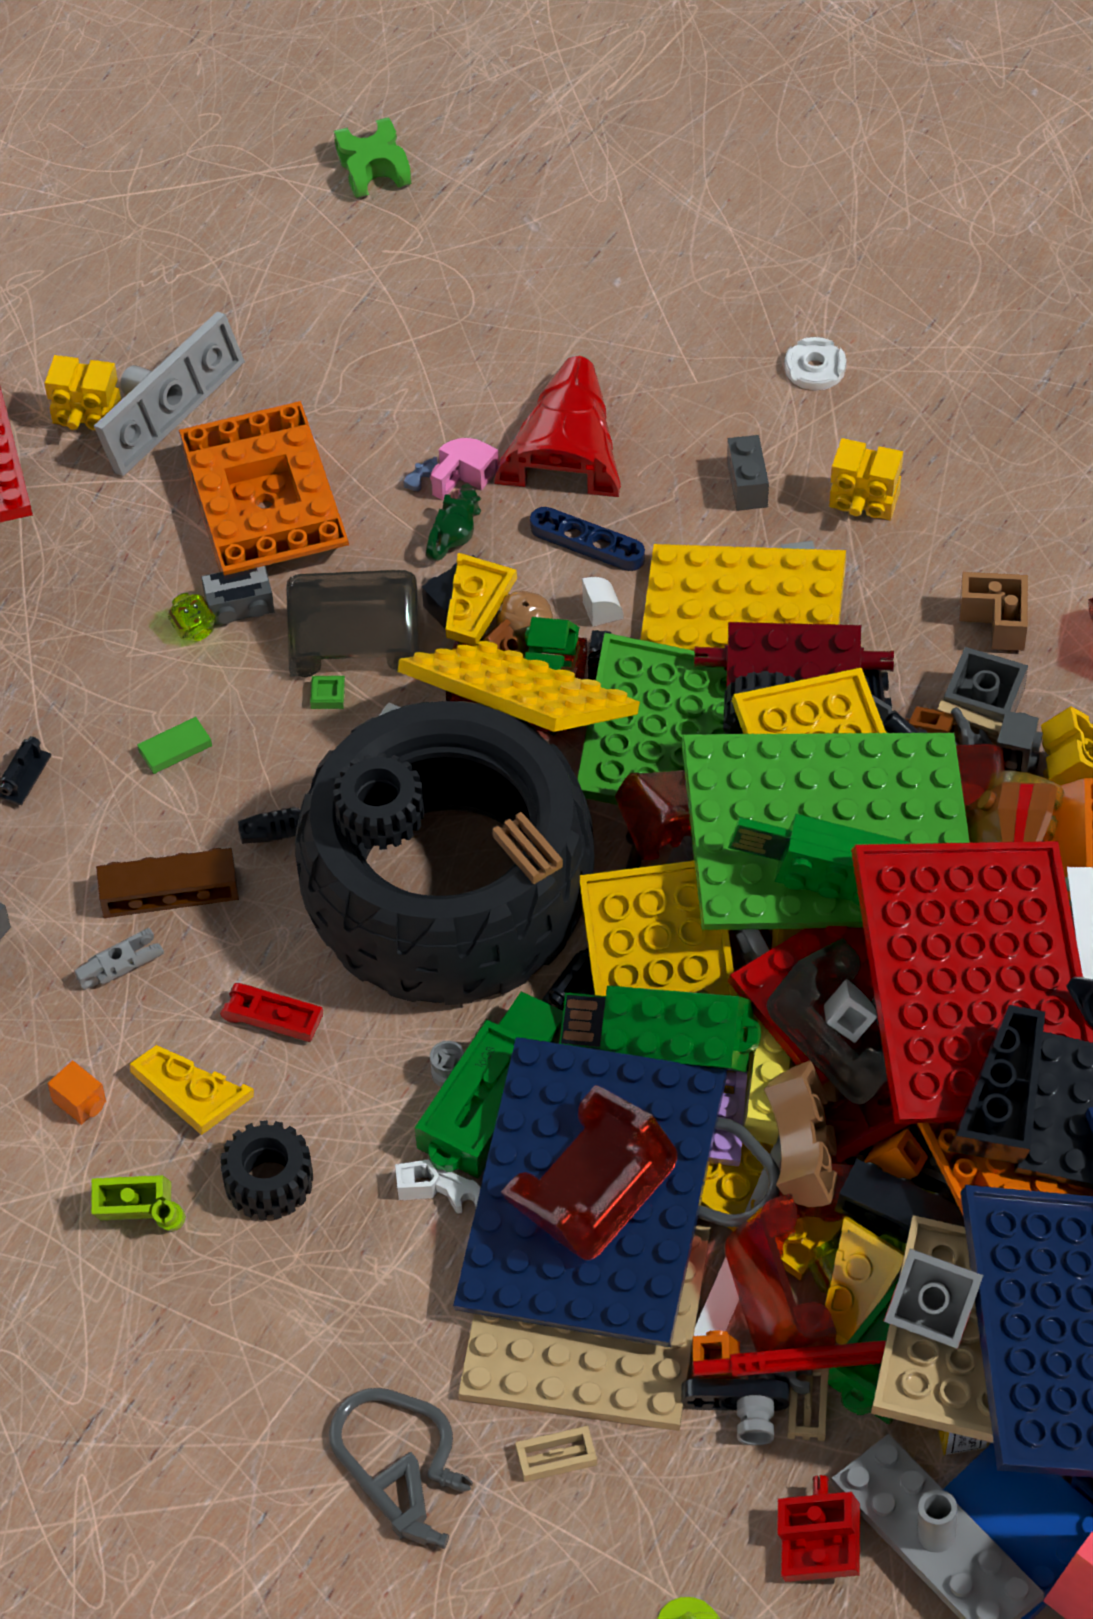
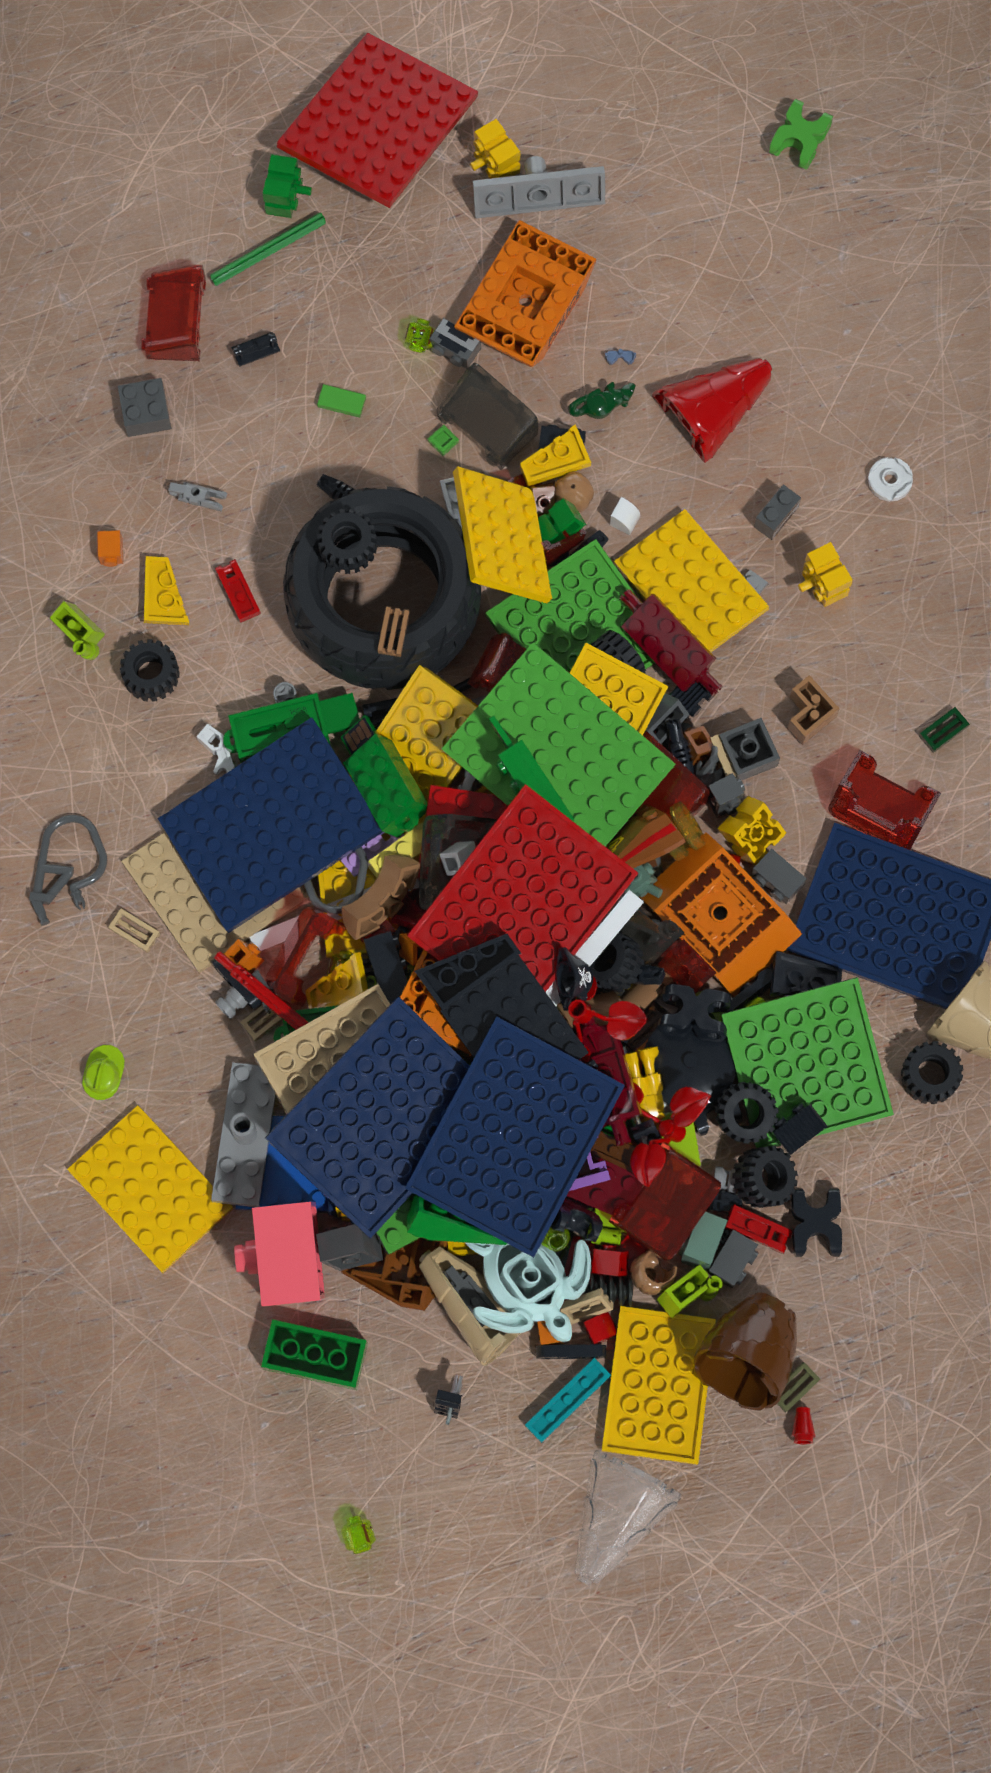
camera: 45 degrees right, 20 degrees up
(167, 882) = (260, 475): reddish brown brick -> none
(465, 461) = (644, 368): bright pink brick -> none
(584, 543) = (658, 473): dark blue beam -> none
(598, 1177) = (265, 824): clear red windscreen -> none
(819, 1534) = (198, 1081): red plate -> none
(933, 1298) = (322, 1035): light grey slope -> none

